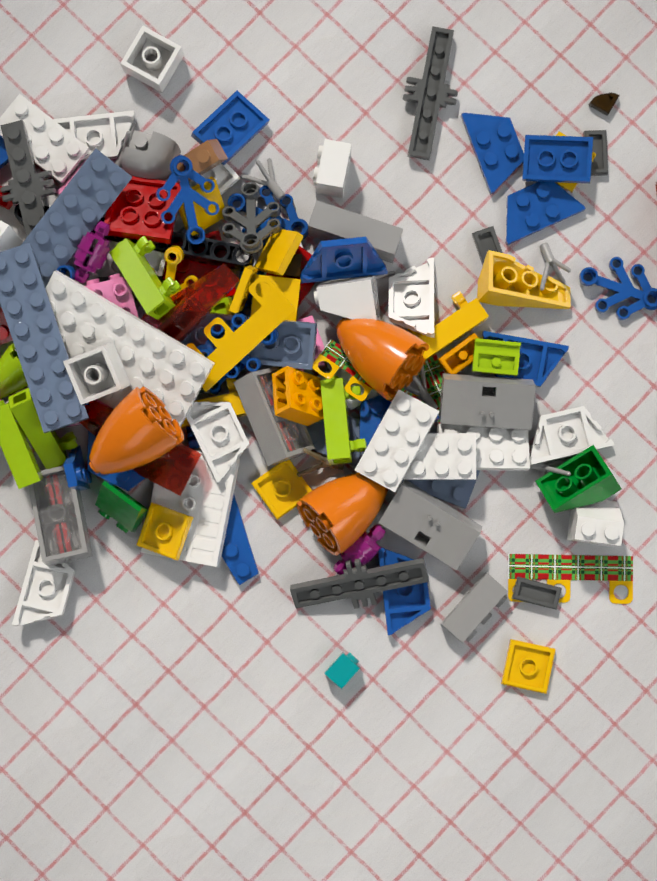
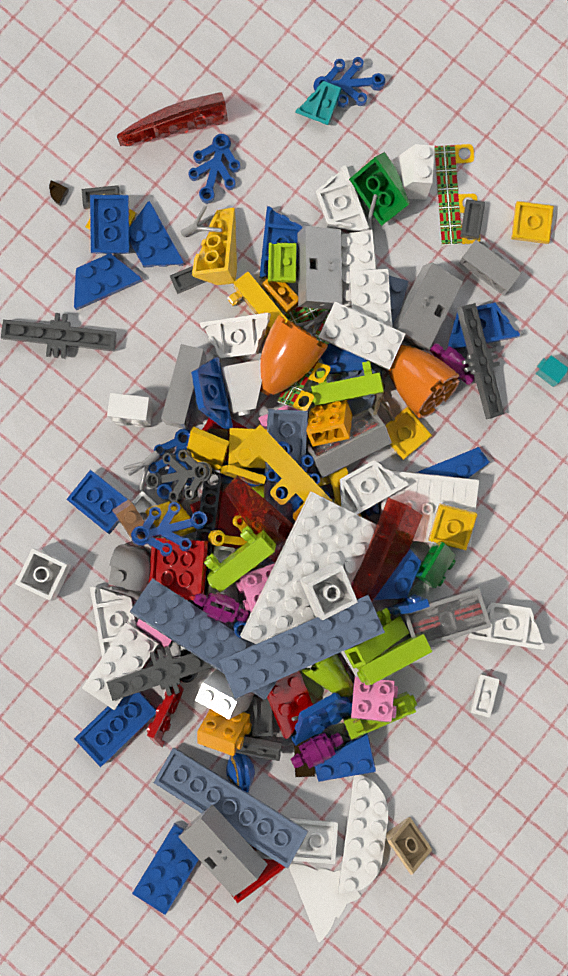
camera: 95 degrees left, 0 degrees up
(134, 434) = (380, 552): orange cylinder -> none

